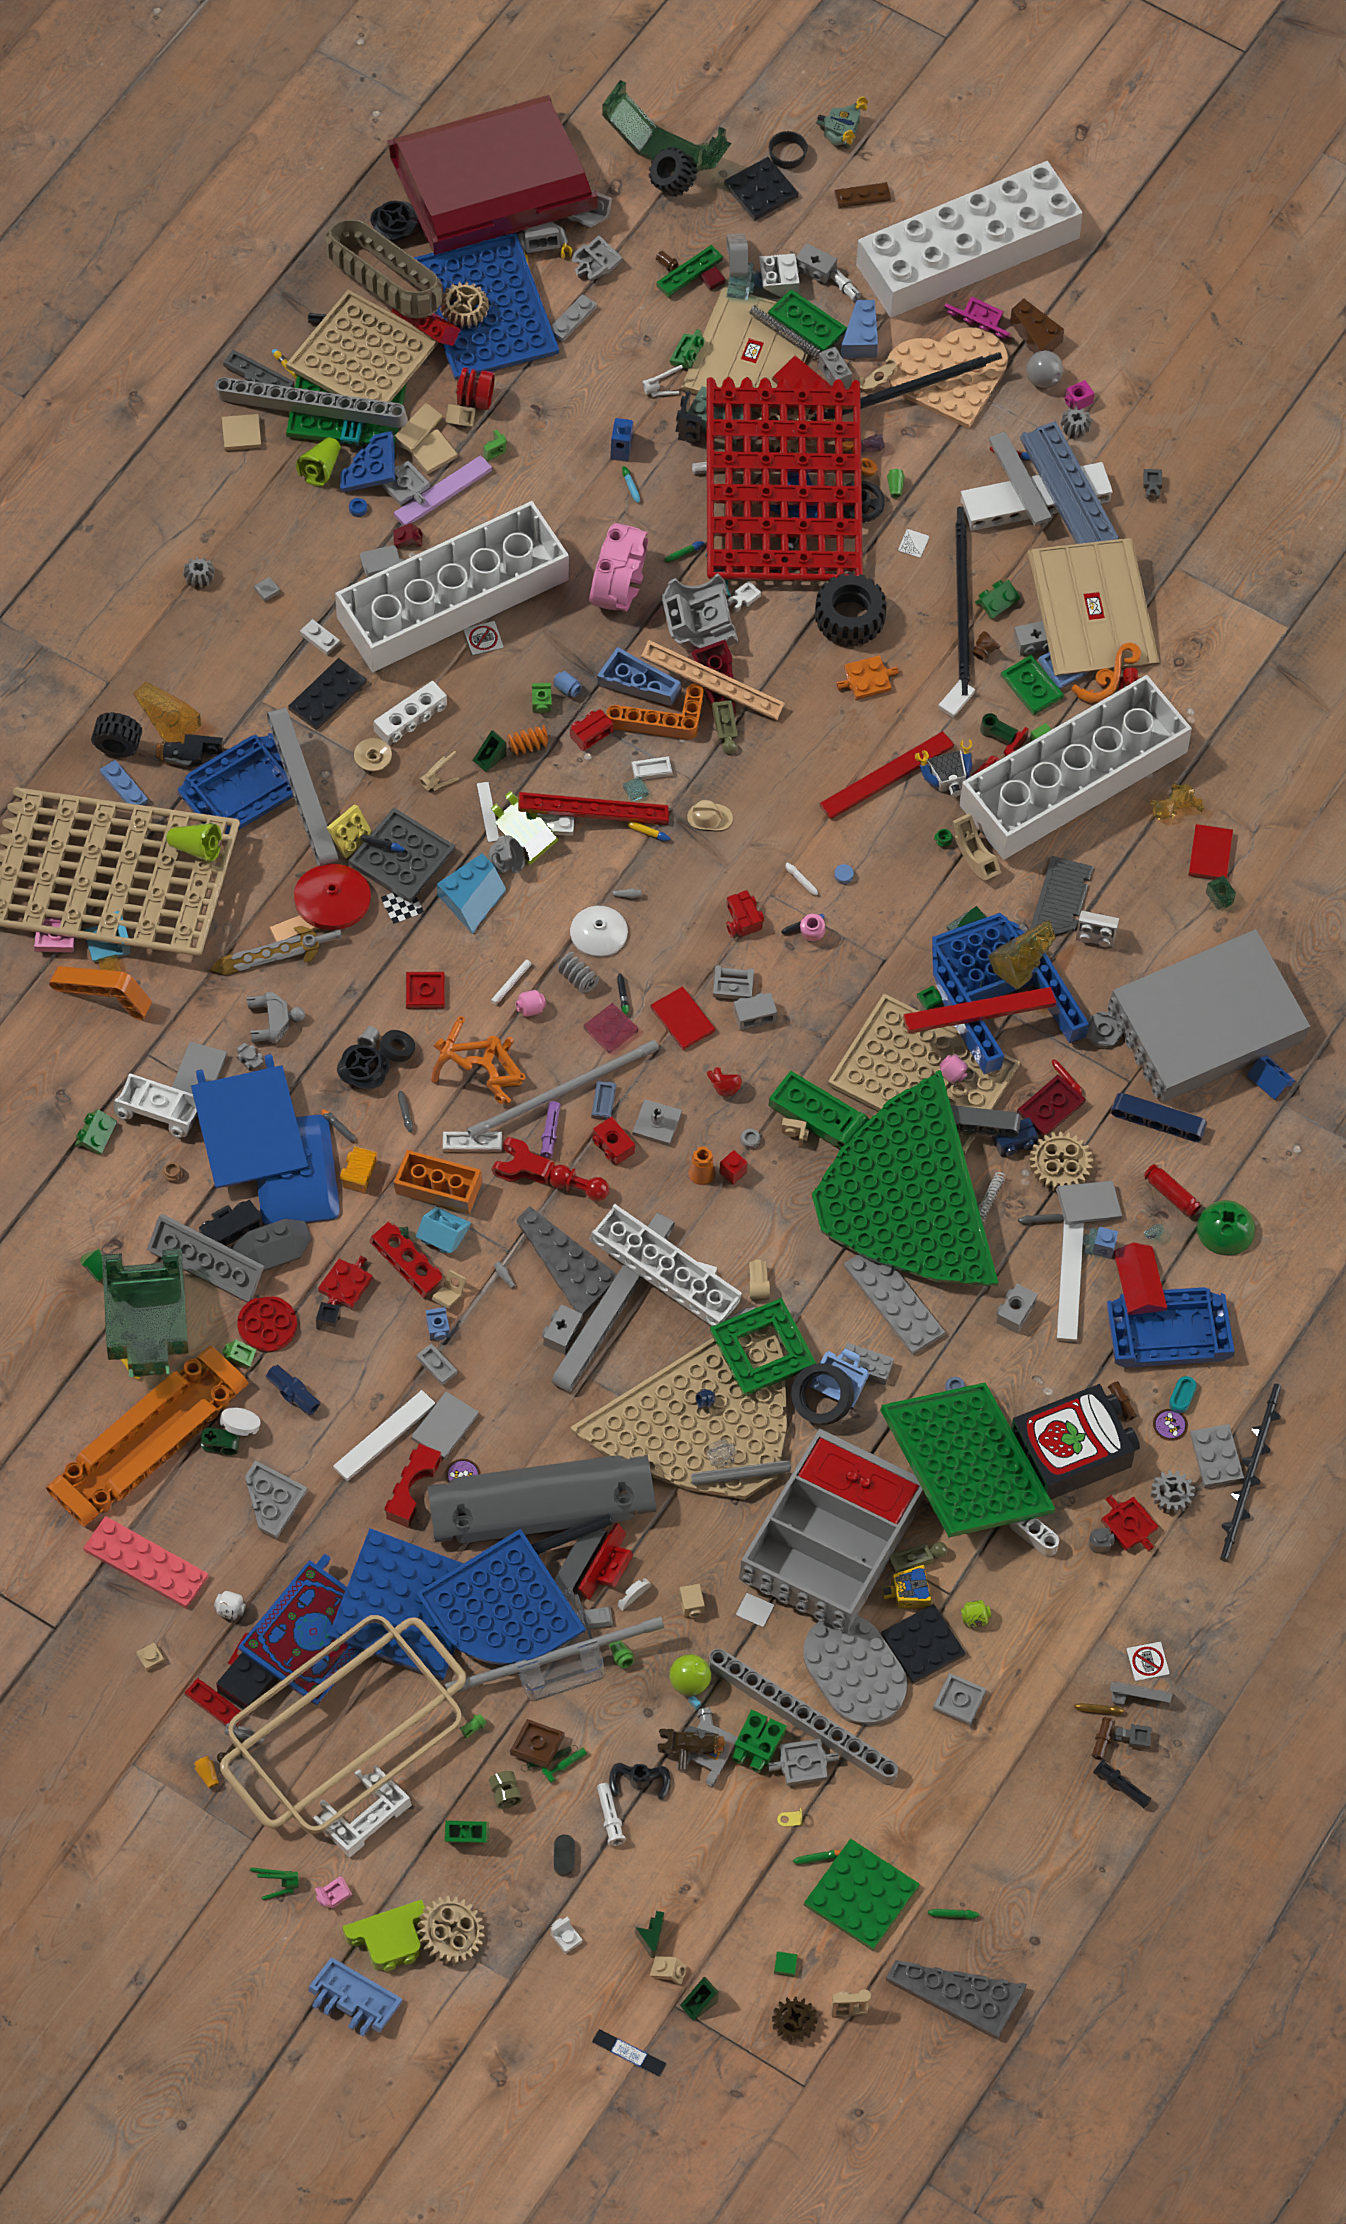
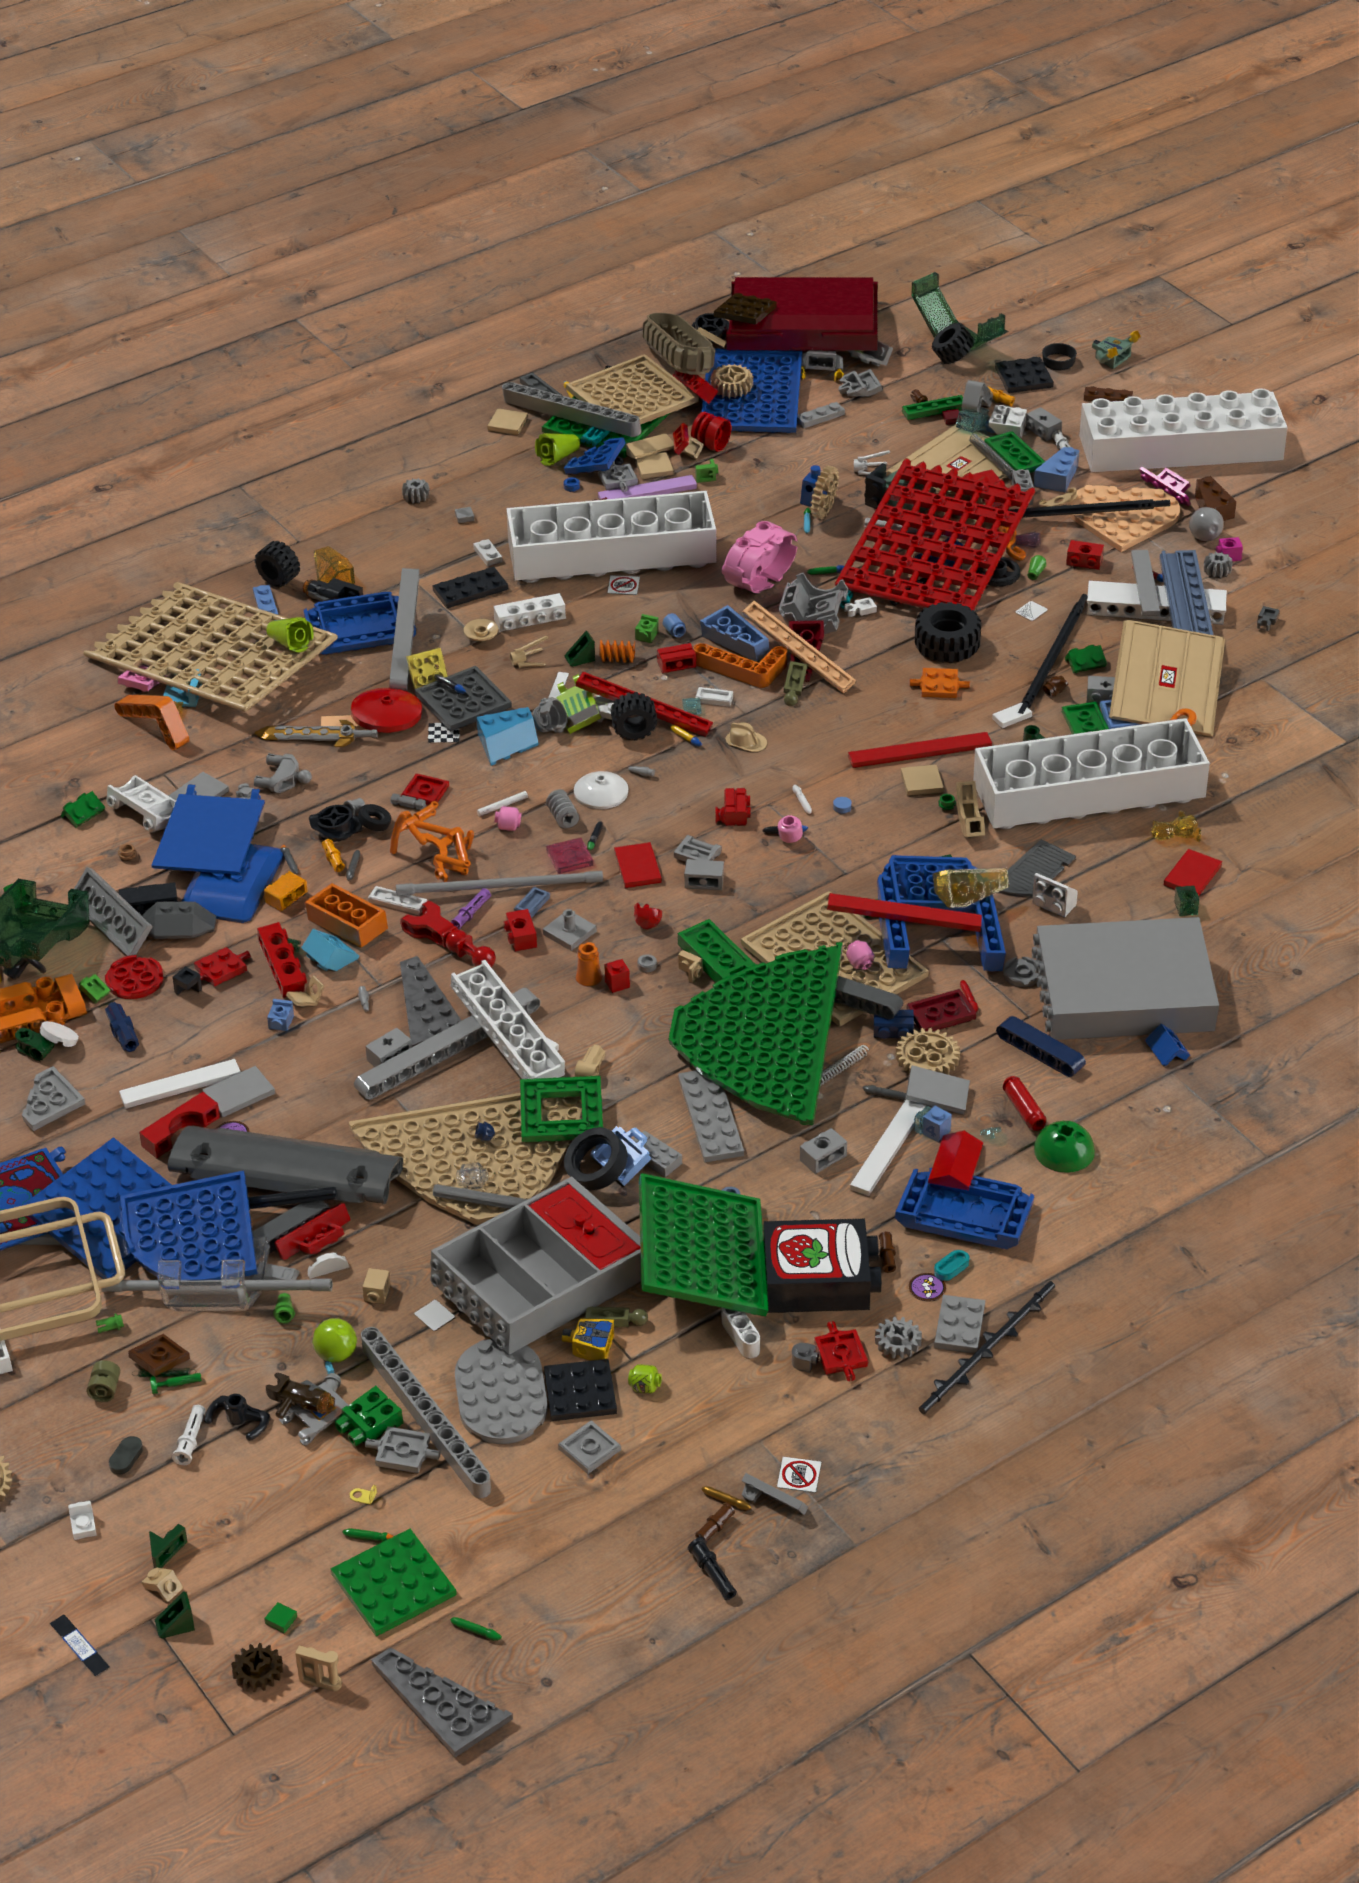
camera: 25 degrees right, 20 degrees down
(380, 1107) = (333, 855): none -> light orange pin
(410, 244) = (716, 341): none -> tan tile
(416, 1011) = (407, 801): none -> light grey axle
(436, 1364) = (260, 1044): light grey plate -> none
(442, 204) = (745, 308): none -> dark brown plate
(446, 407) = (680, 438): none -> red tile
(466, 1831) = (44, 1402): green brick -> none
(594, 831) = (633, 705): none -> black tyre
(643, 451) = (821, 502): none -> tan gear
(687, 349) = (904, 449): green bracket -> none
(750, 232) = (999, 396): none -> light orange pin
(906, 815) = (922, 780): none -> tan tile
(938, 449) = (1085, 554): none -> red brick
(947, 770) = (964, 753): torso -> none
(1138, 1736) = (749, 1532): dark grey plate -> none

